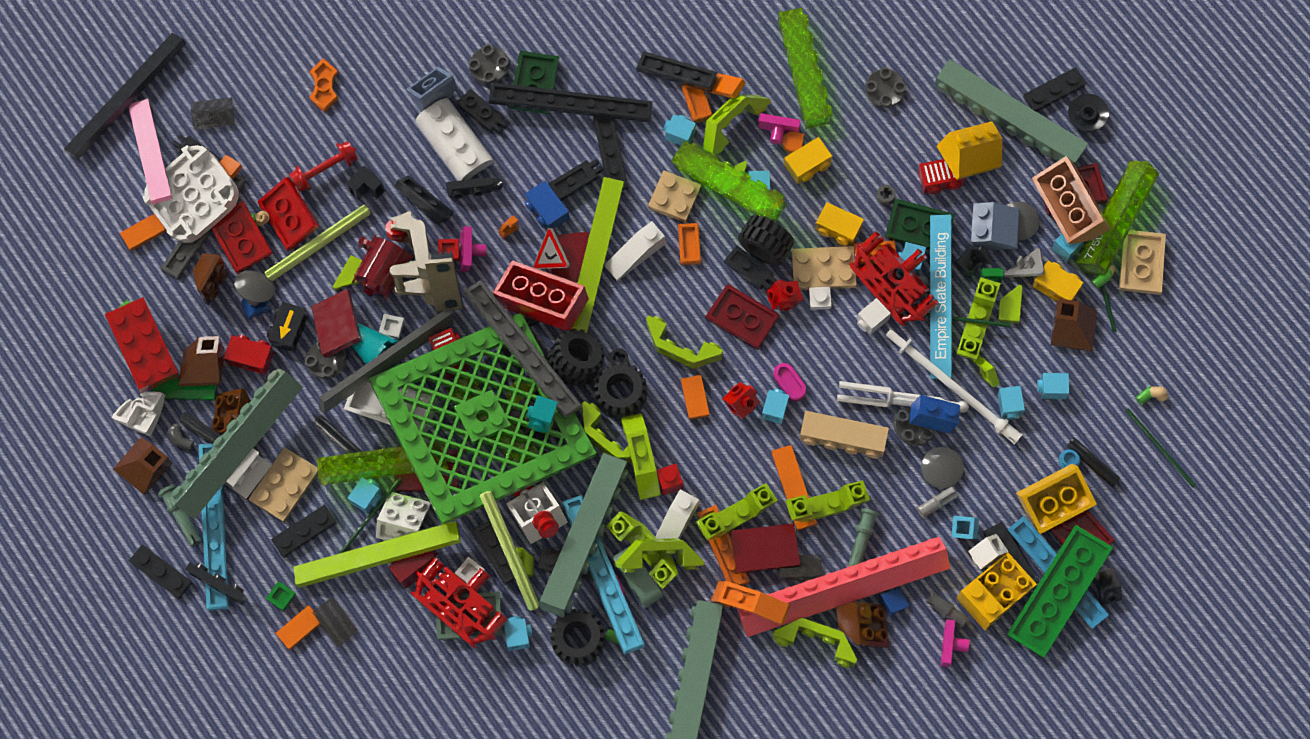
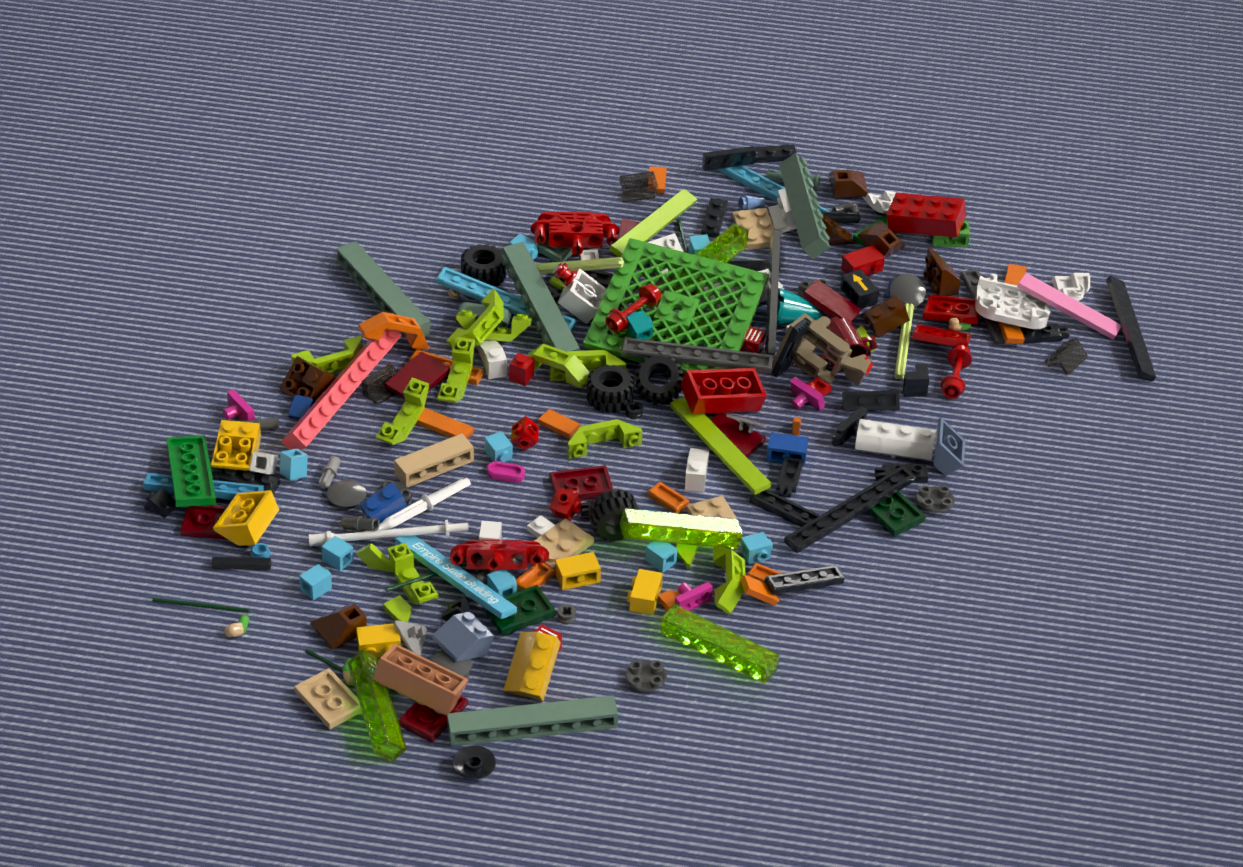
camera: 130 degrees right, 30 degrees down
(112, 181) = (1073, 285): none -> white brick
(256, 517) = (750, 202): none -> medium blue cone
(281, 596) = (686, 182): green plate -> none
(305, 277) = (886, 316): none -> reddish brown slope
(323, 93) = (1017, 414): orange tile -> none
(558, 432) = (648, 295): none -> red piece
(864, 531) = (361, 426): sand green pin -> none
(967, 415) = (360, 523): none -> dark grey pin
(992, 274) = (433, 614): green plate -> none
(1054, 90) = (518, 766): black plate -> none

